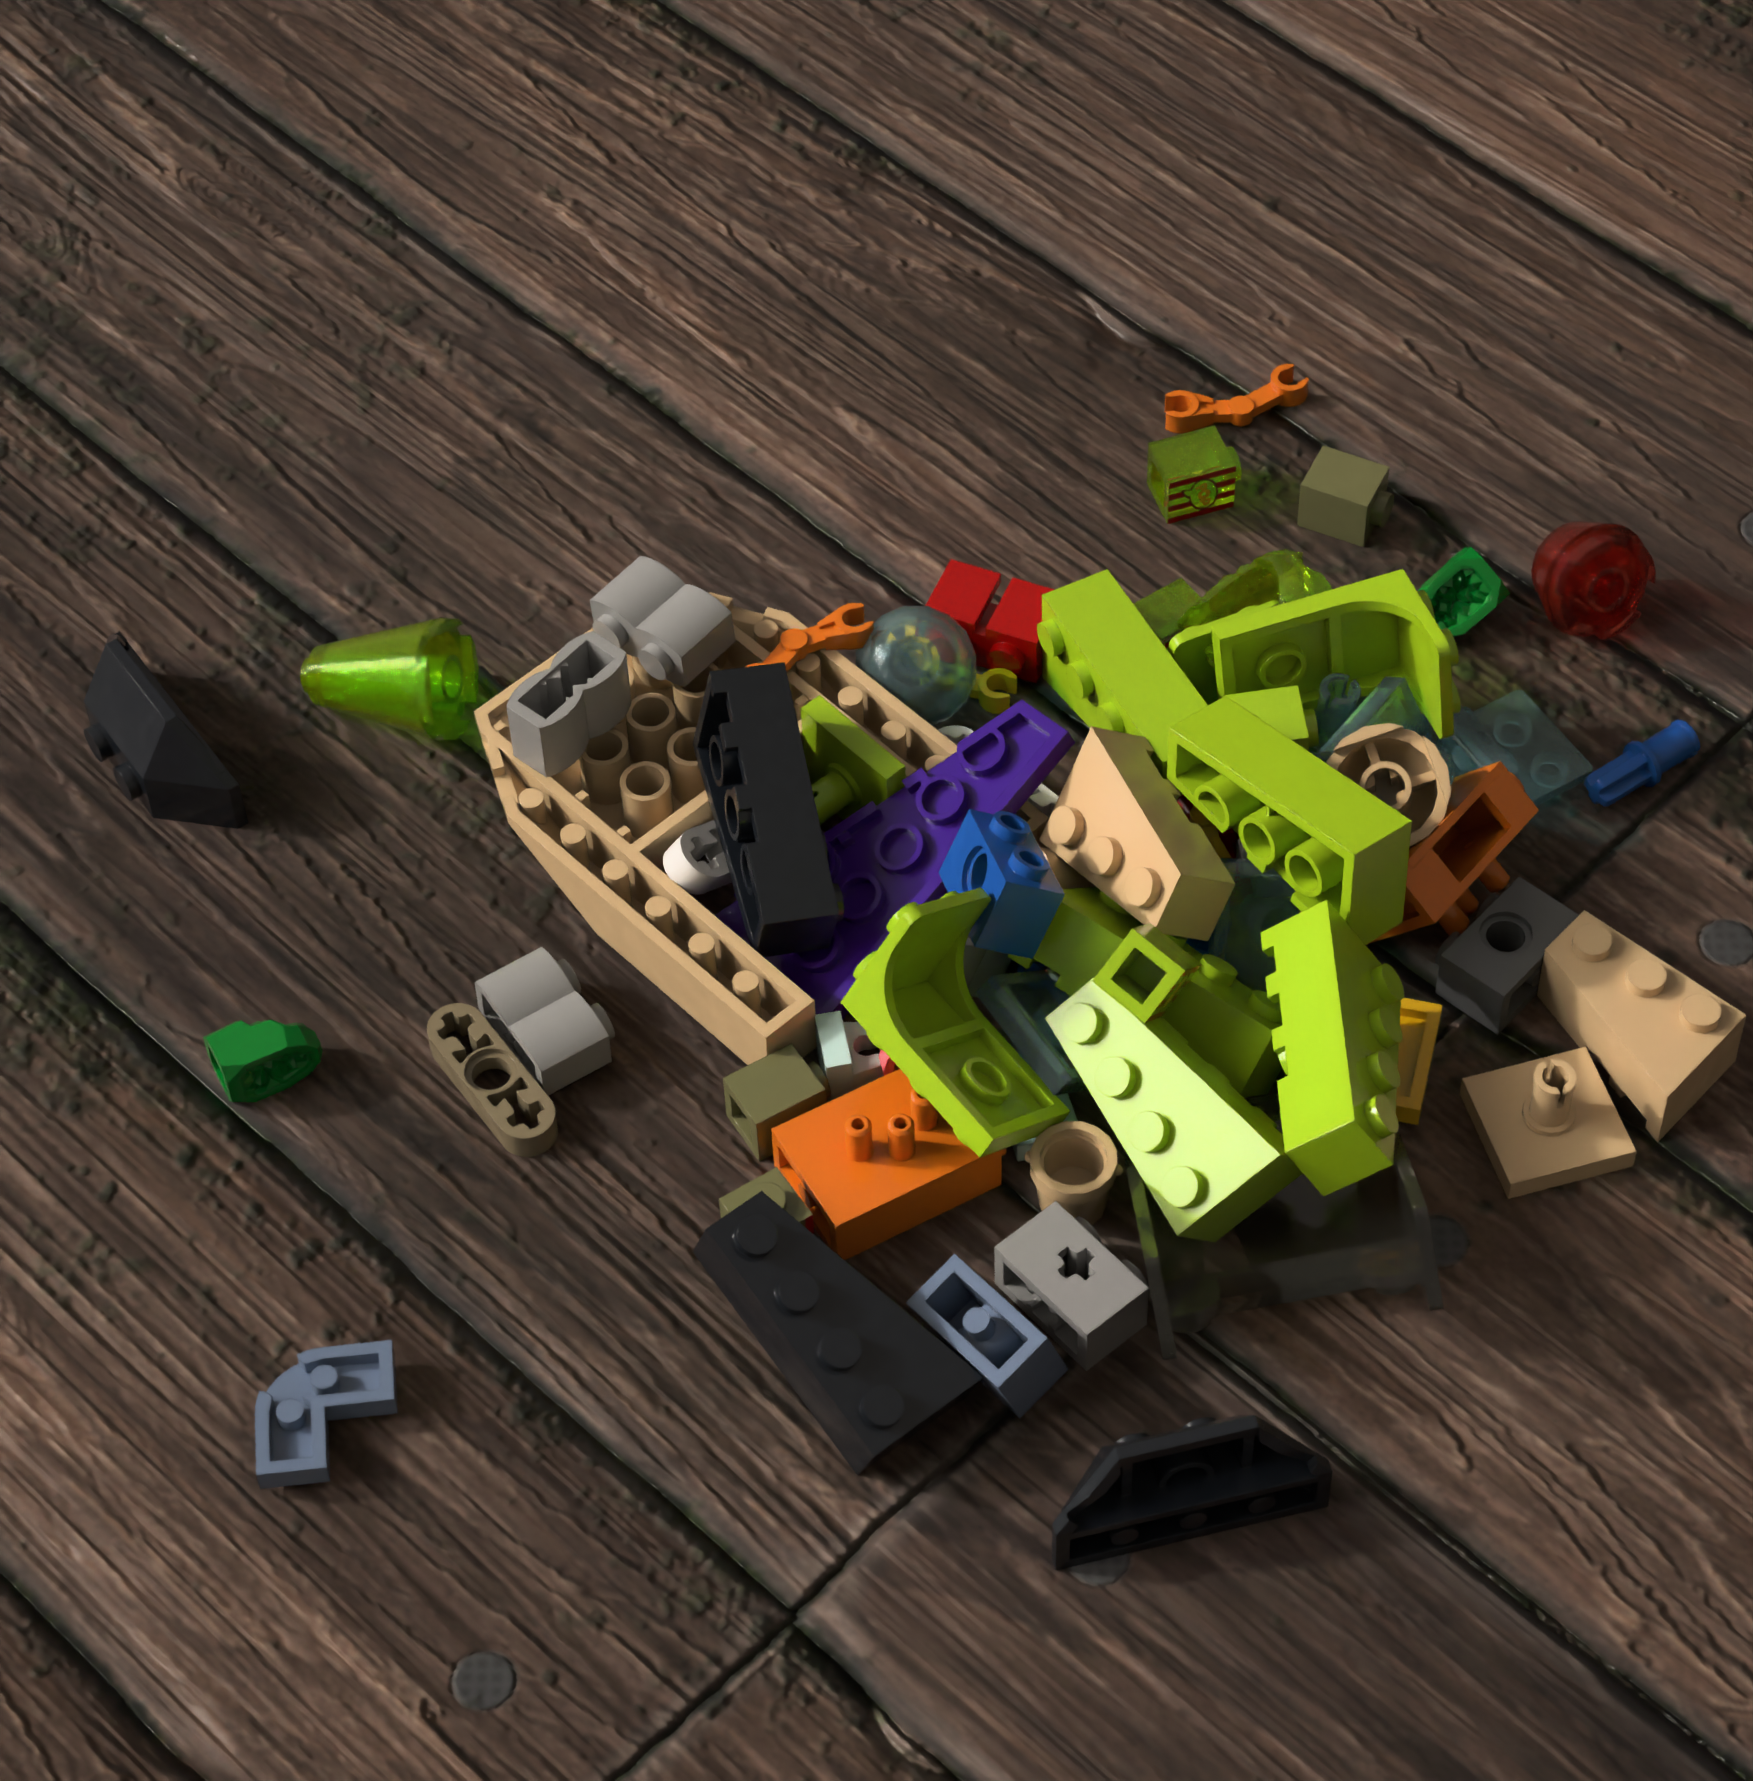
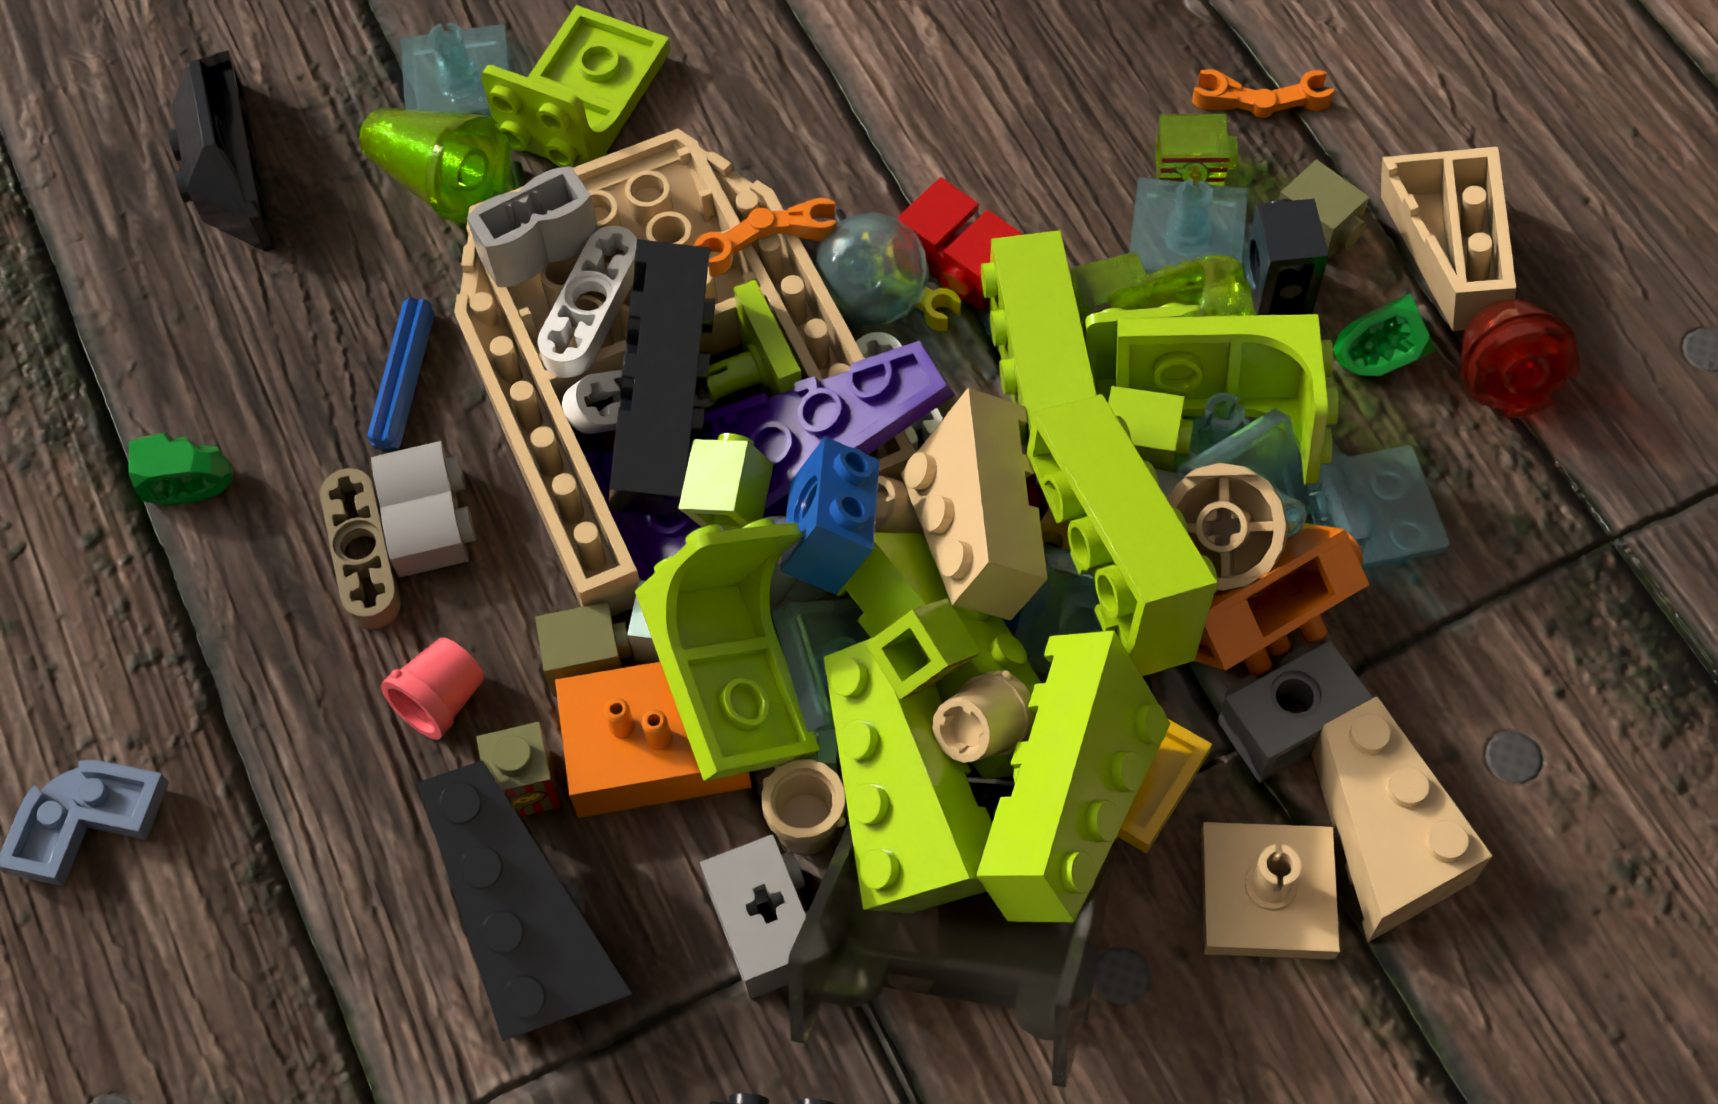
camera: 20 degrees right, 10 degrees up
(370, 590) = (446, 67): none -> clear light blue tile
(455, 903) = (401, 374): none -> blue axle
(520, 573) = (577, 89): none -> lime bracket
(640, 1181) = (433, 687): none -> coral piece
(661, 784) = (592, 324): none -> white beam
(662, 621) = (652, 170): light grey brick -> none
(870, 887) = (726, 482): none -> brick
(988, 1335) = (659, 948): sand blue brick -> none
(1209, 539) = (1186, 222): none -> clear light blue tile
(1229, 1023) = (984, 717): none -> tan piece
(1334, 532) = (1285, 257): none -> black brick
(1481, 475) = (1454, 226): none -> tan wedge
(1642, 763) = (1498, 553): blue axle -> none

